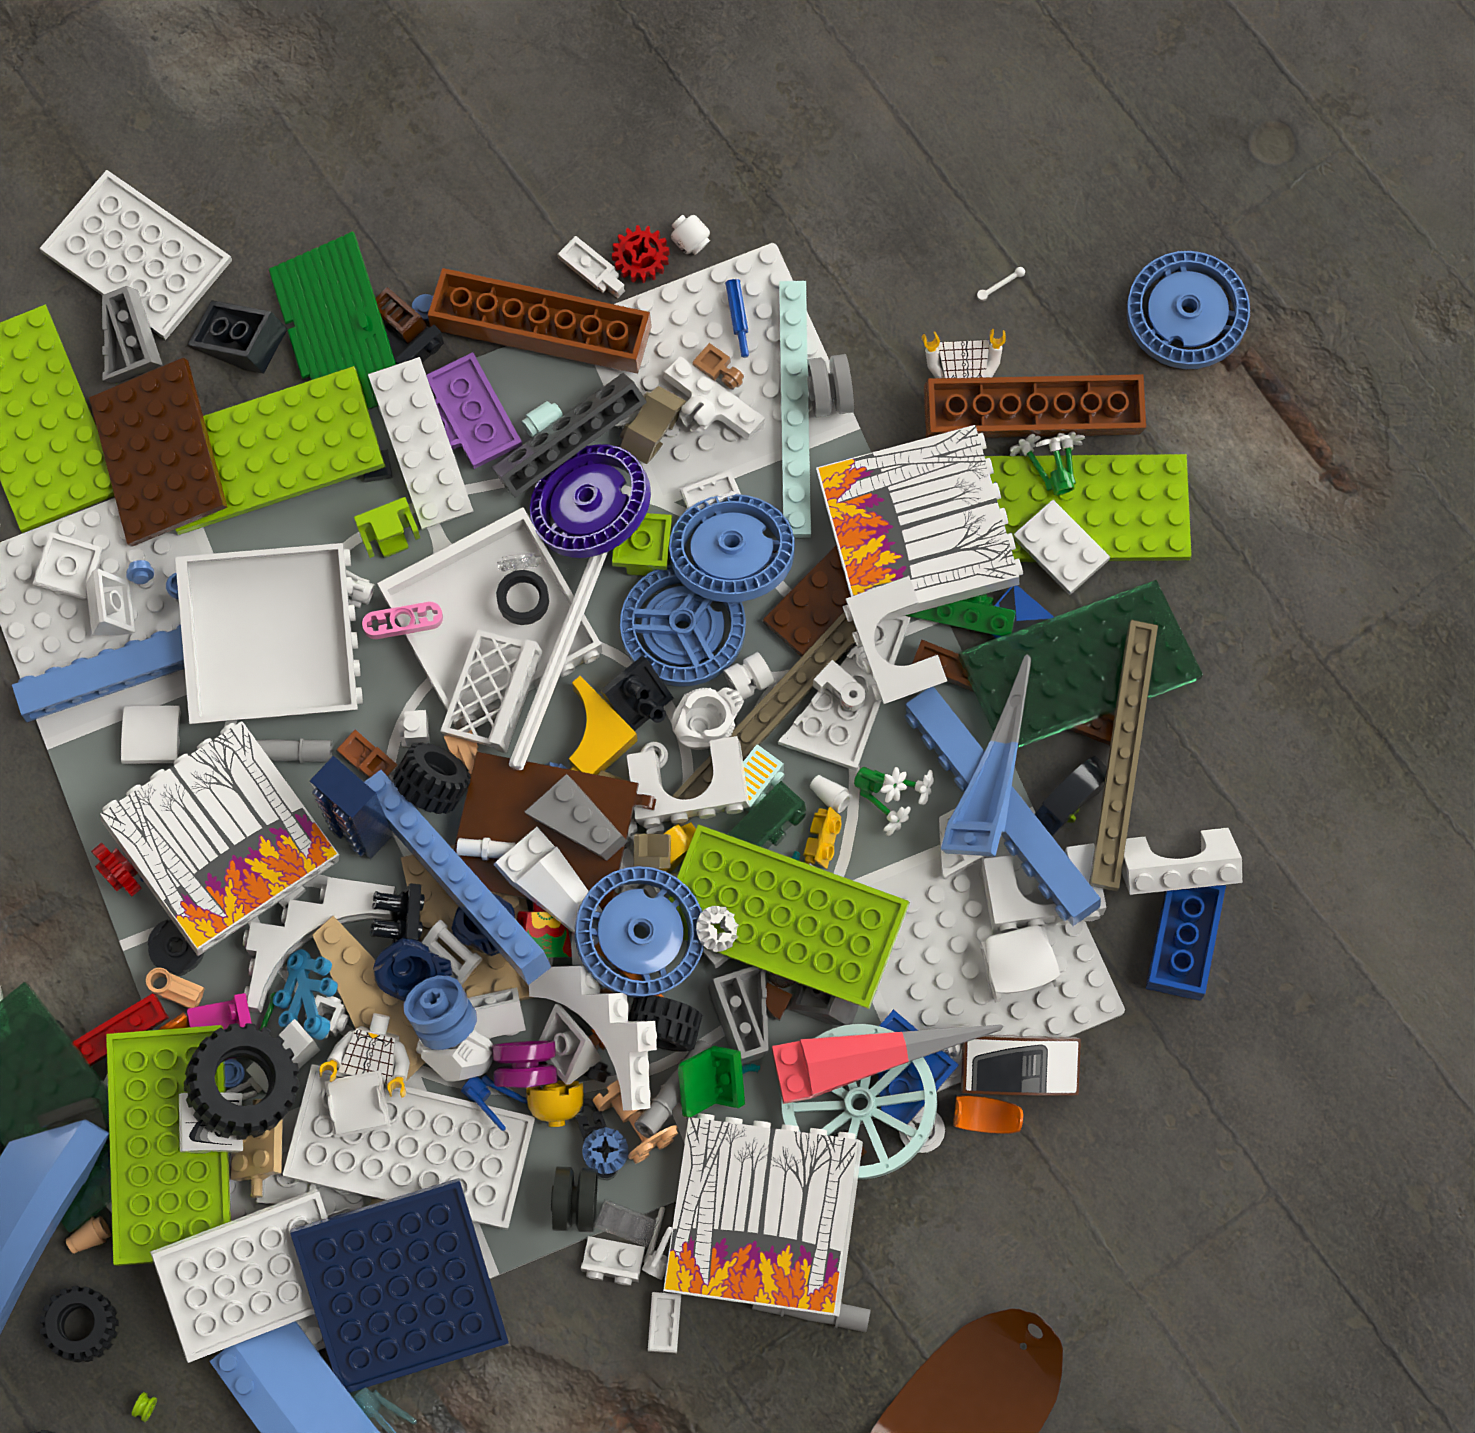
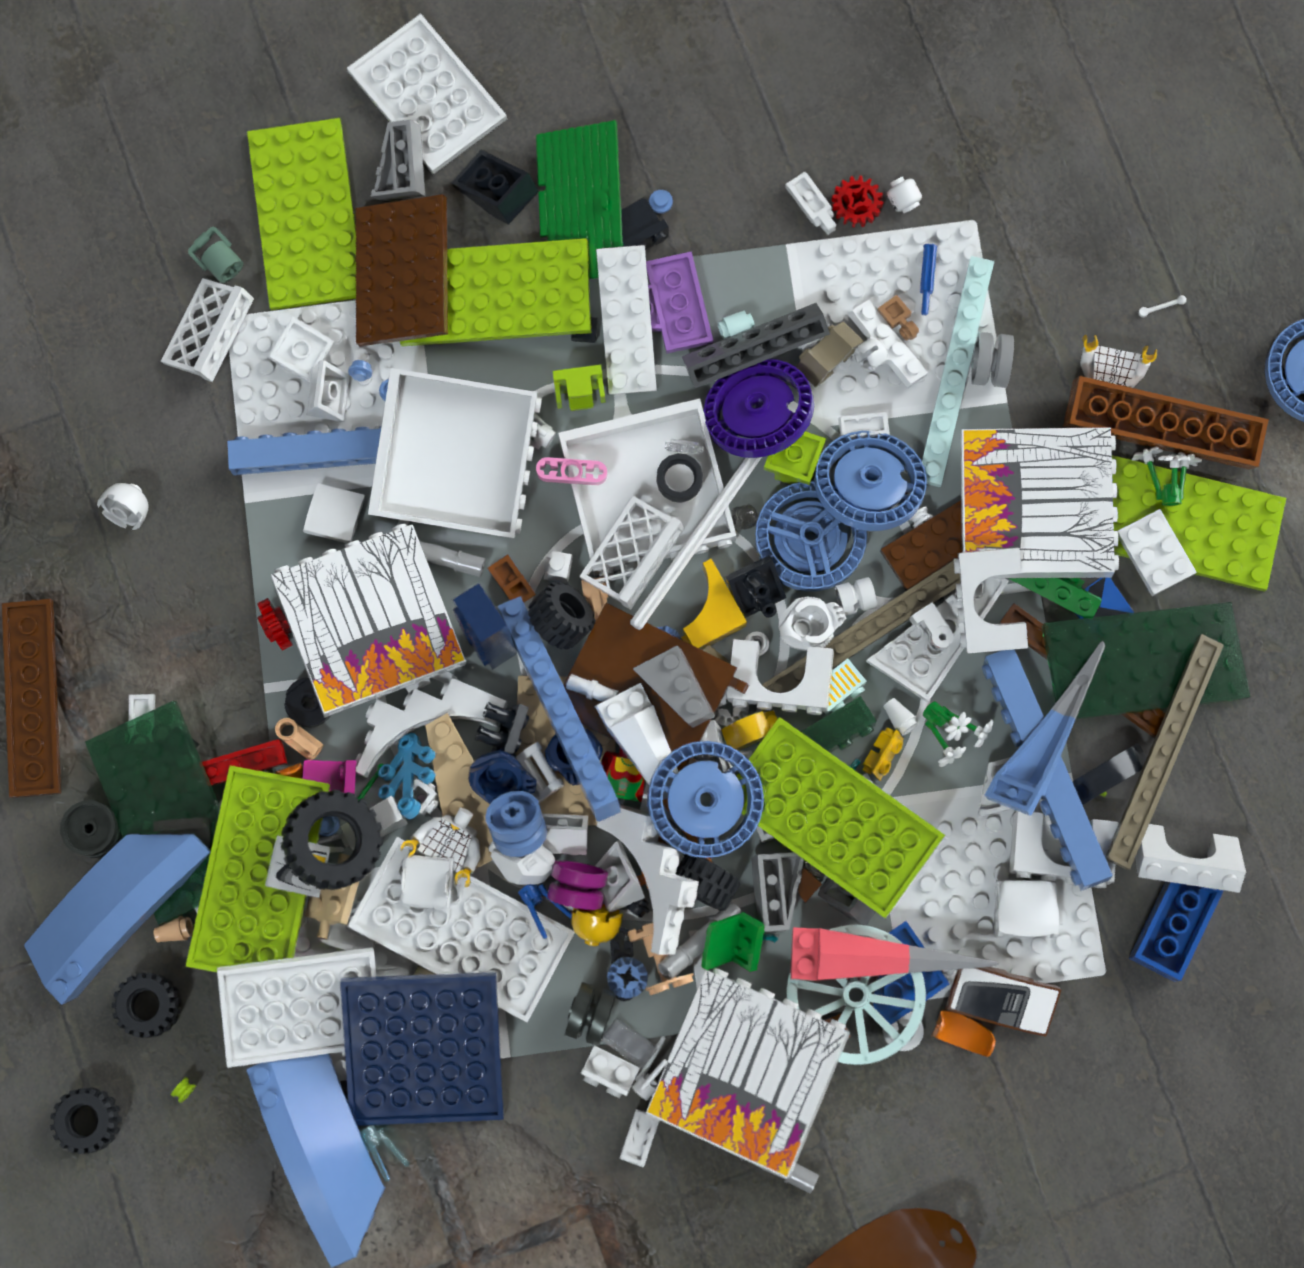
camera: 15 degrees right, 5 degrees up
(410, 326) = (644, 214): reddish brown slope -> none
(540, 320) = (756, 238): dark orange brick -> none
(605, 622) = (744, 516): none -> clear smoke piece
(652, 850) = (733, 729): dark tan panel -> none
(708, 934) = (763, 817): white gear -> none
(796, 573) = (920, 517): none -> white bush

